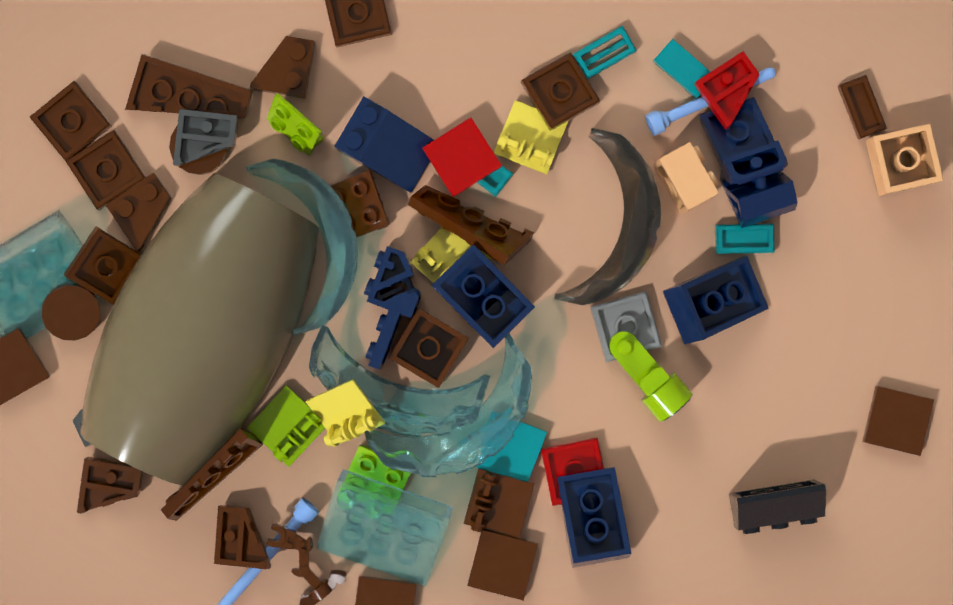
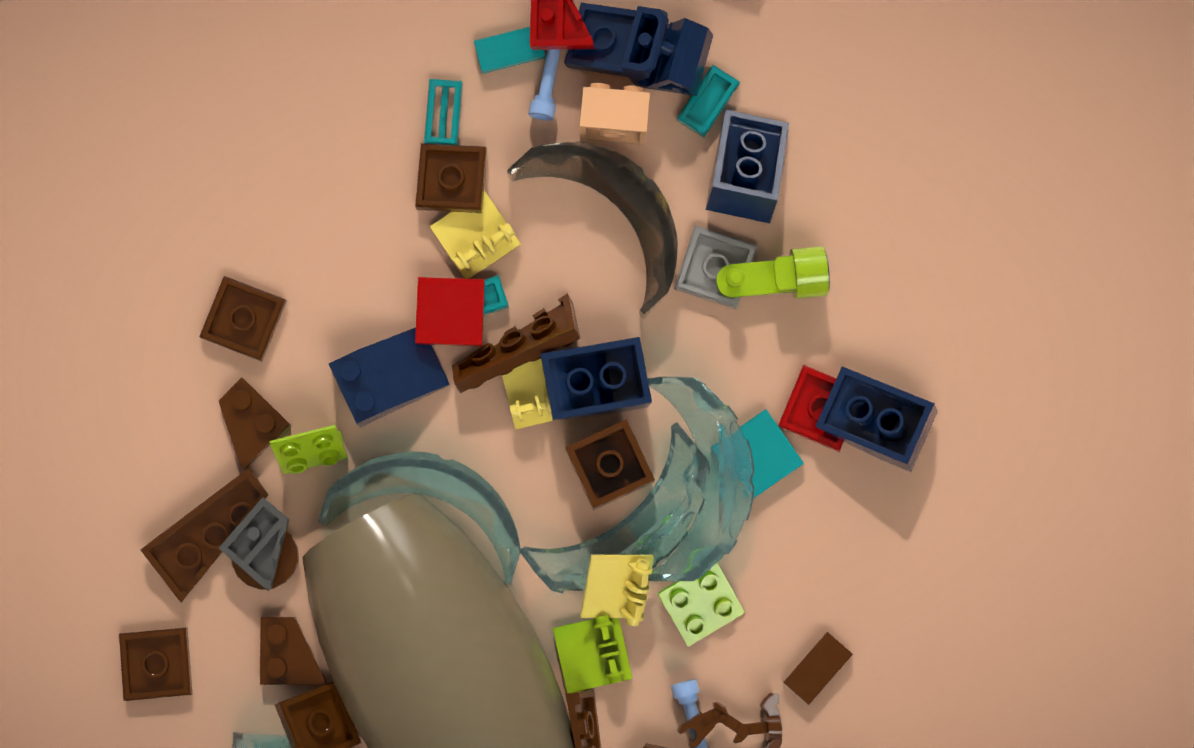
camera: 60 degrees left, 5 degrees down
(105, 169) = (226, 661): reddish brown tile -> none
(362, 203) = (428, 433): reddish brown hinge -> none
(384, 527) = (753, 624): clear light blue slope -> none
(392, 270) = (512, 446): dark blue piece -> none
(498, 504) = (803, 500): reddish brown hinge -> none
(502, 564) = (863, 537): reddish brown tile -> none
(778, 506) = (982, 238): black slope -> none
(898, 420) = (976, 74): reddish brown tile -> none

